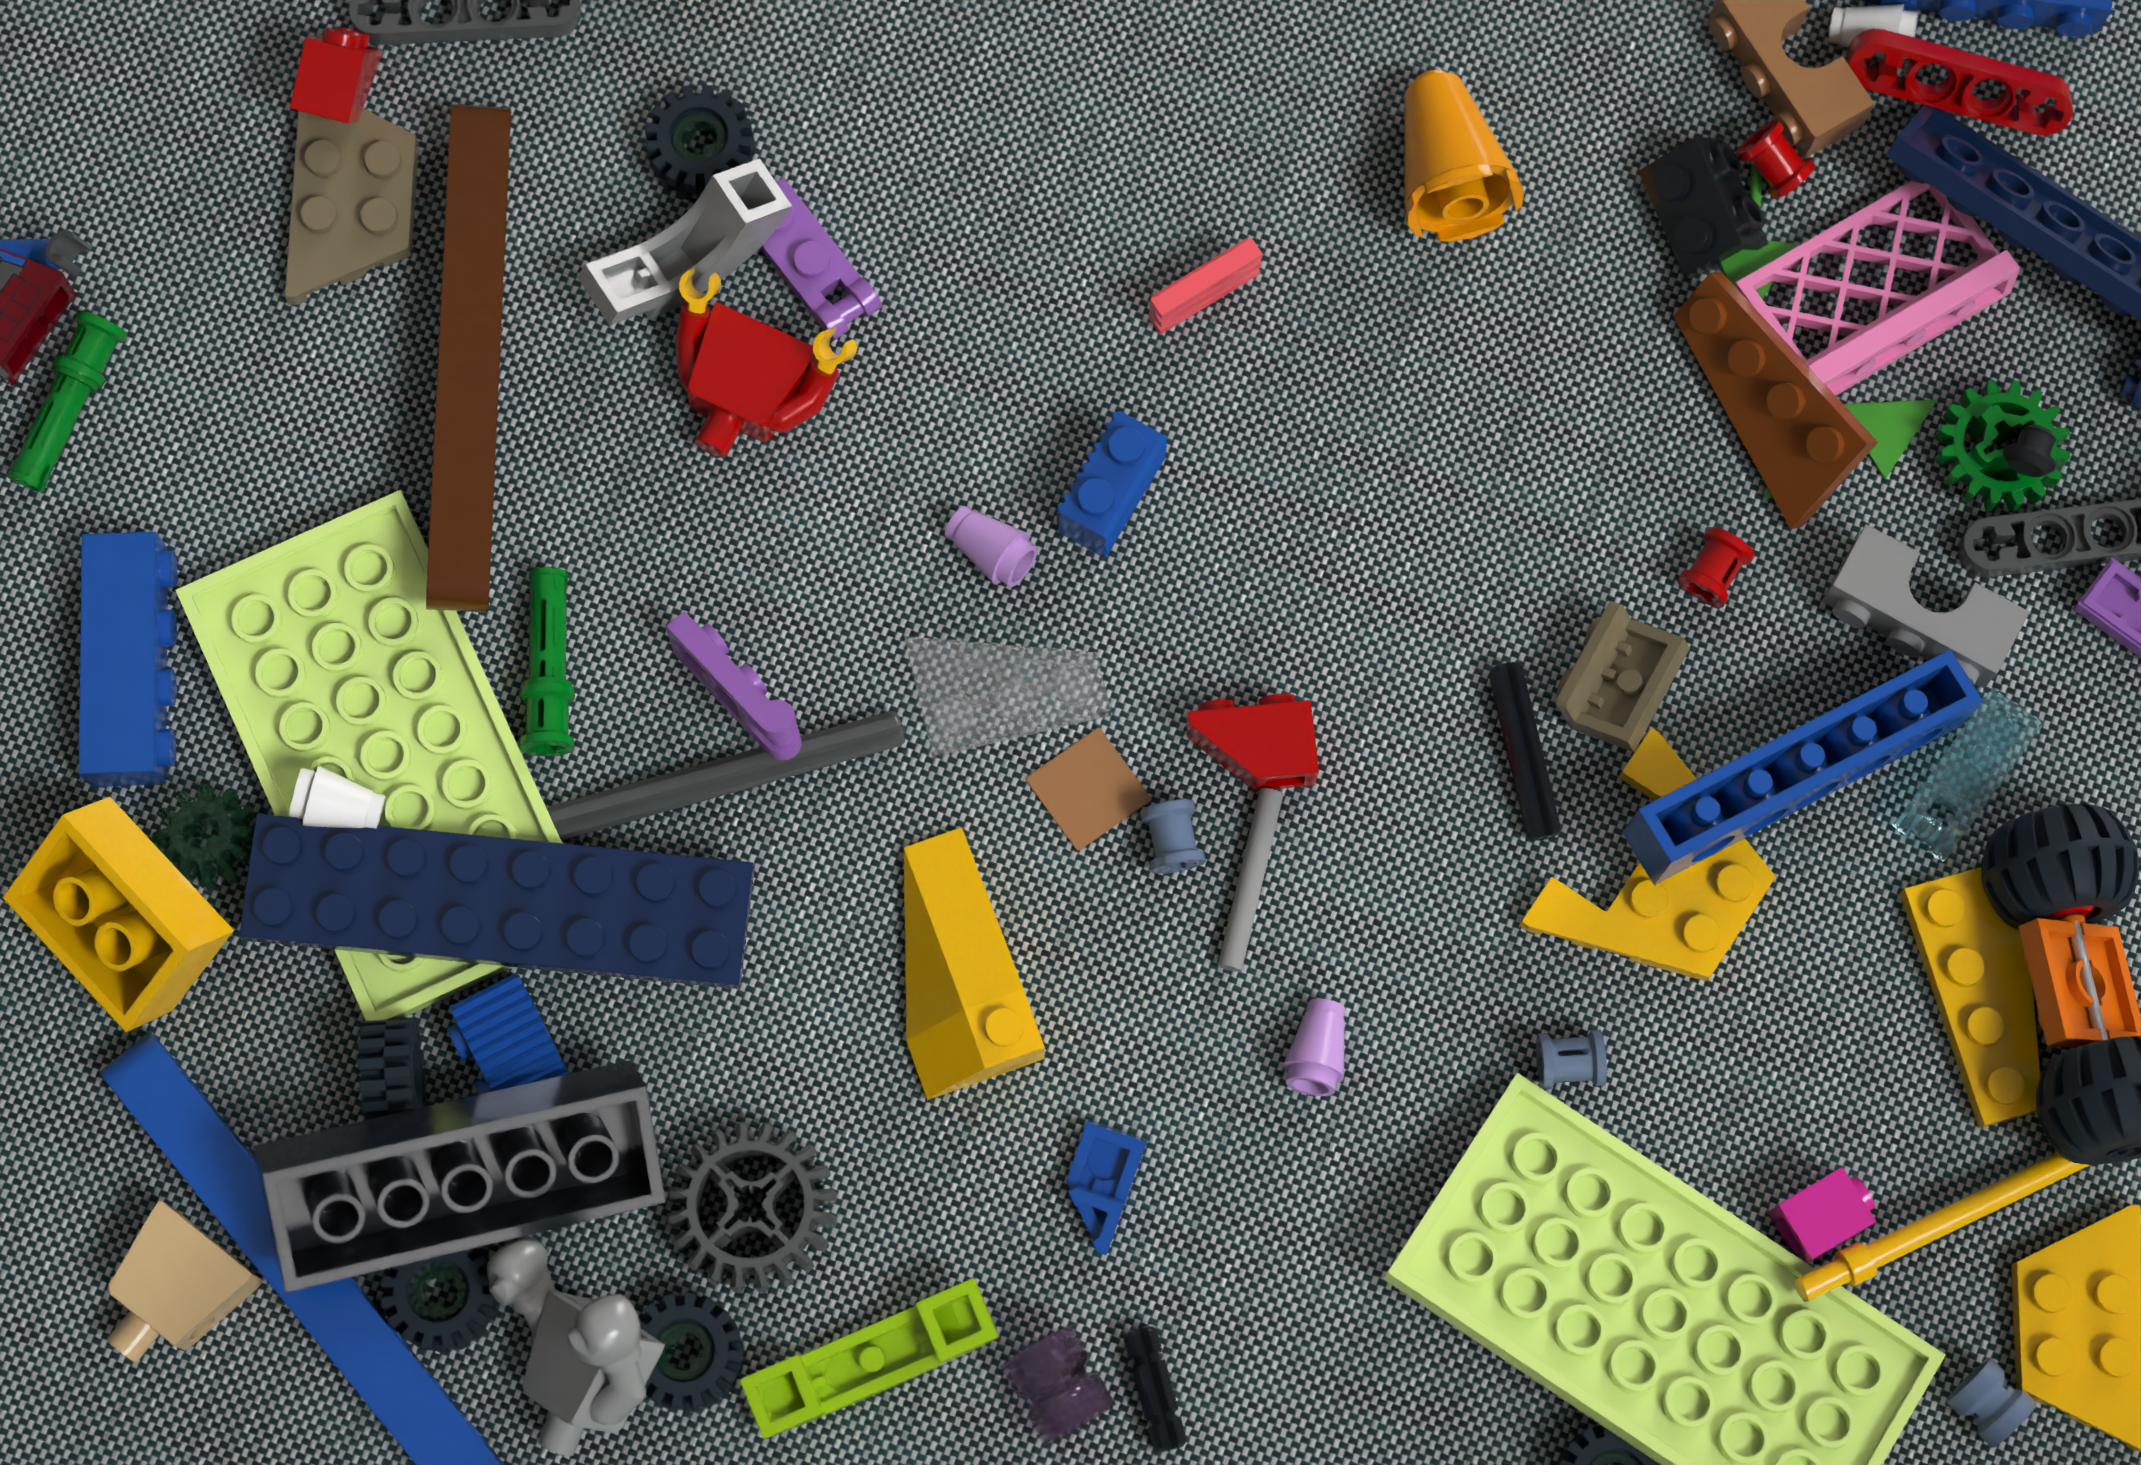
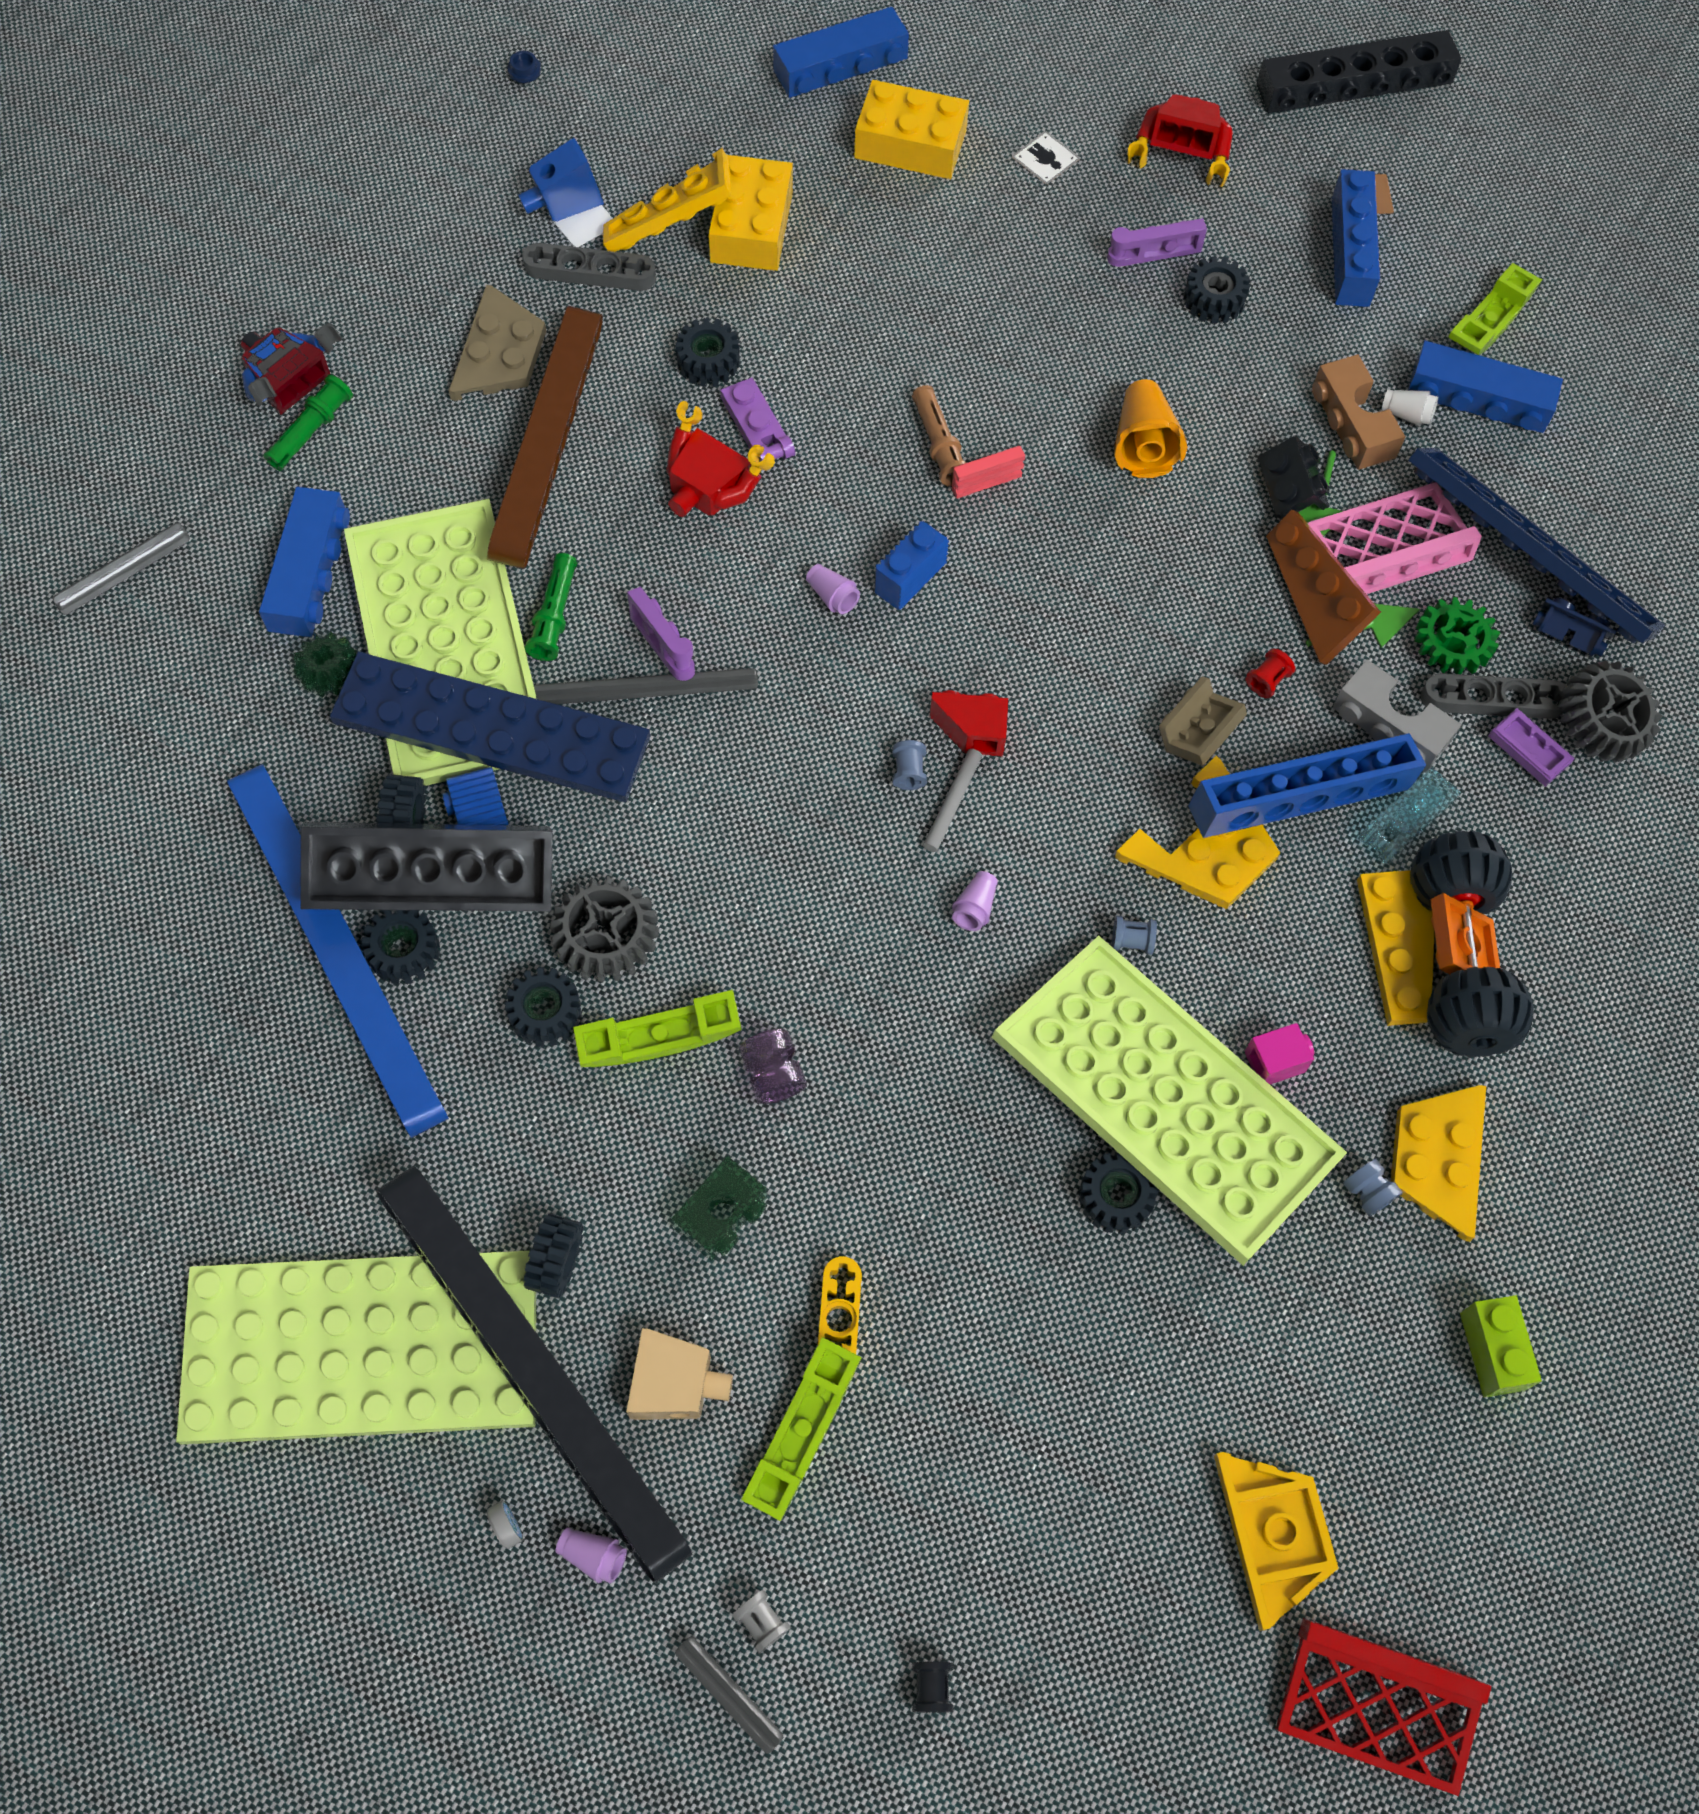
camera: 10 degrees right, 10 degrees down
(117, 913) = (260, 690): yellow brick -> none
(175, 1284) = (240, 910): tan torso -> none
(334, 801) = (404, 651): white cone -> none
(335, 74) = (505, 276): red slope -> none
(585, 1352) = (481, 984): light grey torso -> none
(715, 235) = (713, 389): light grey arch -> none
(961, 984) = (763, 826): yellow wedge -> none
(1001, 692) = (822, 670): clear wing -> none
(1088, 789) = (863, 734): medium nougat sticker -> none
(1103, 1178) = (827, 954): blue slope -> none
(1125, 252) = (944, 447): none -> medium nougat pin
(1155, 1389) = (834, 1084): black axle -> none
(1524, 751) = (1135, 757): black axle -> none
(1775, 159) = (1341, 460): red bush -> none
(1860, 1261) = (1300, 1084): yellow bar -> none
(1964, 73) = (1461, 432): red beam -> none
(2031, 452) = (1475, 633): black piece -> none

